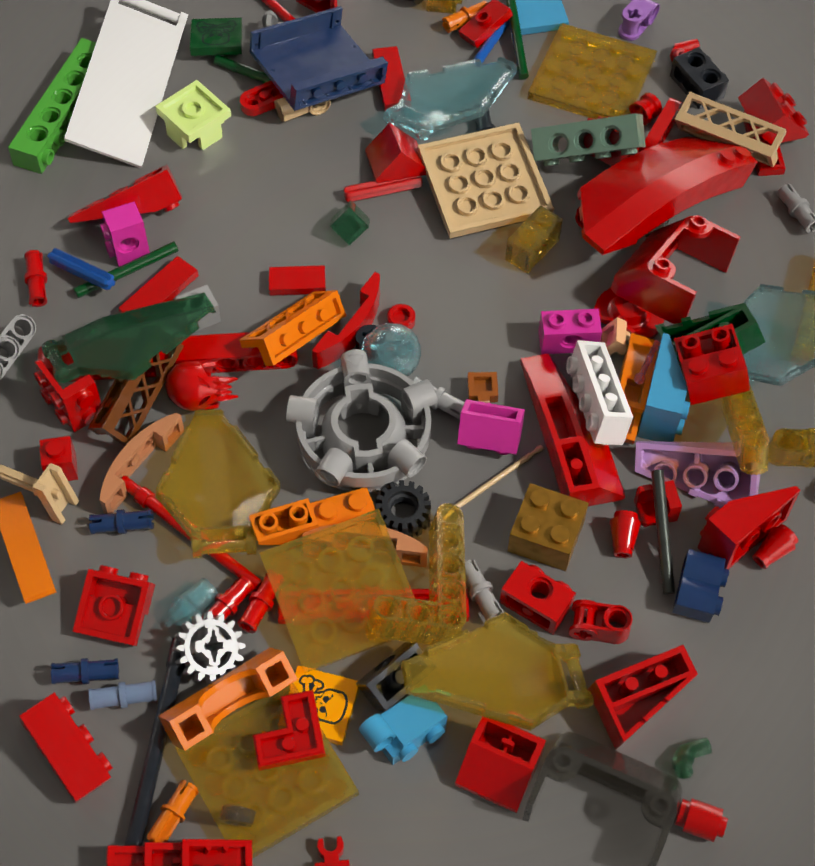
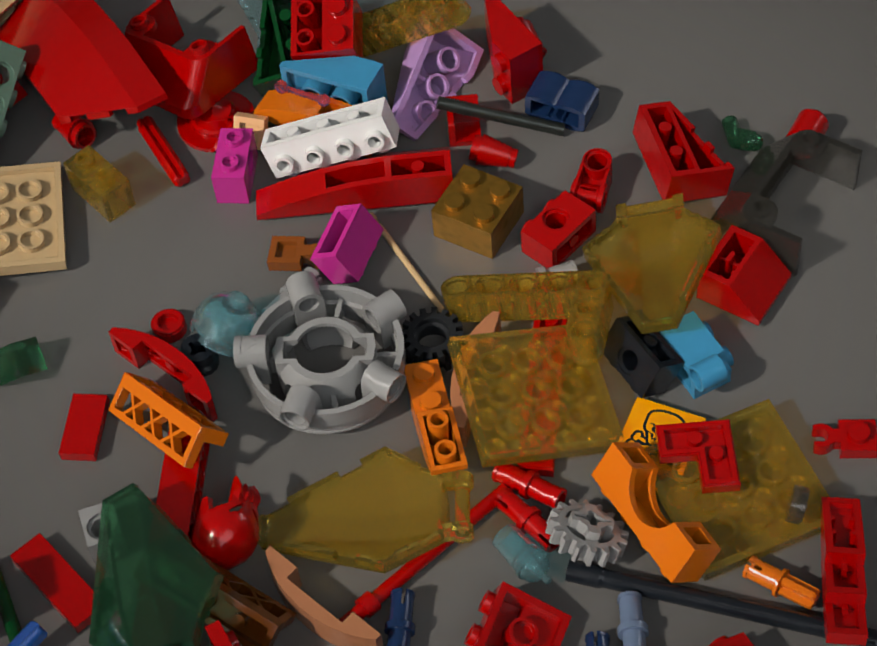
camera: 75 degrees left, 5 degrees down
(583, 279) = (163, 151): none -> red axle

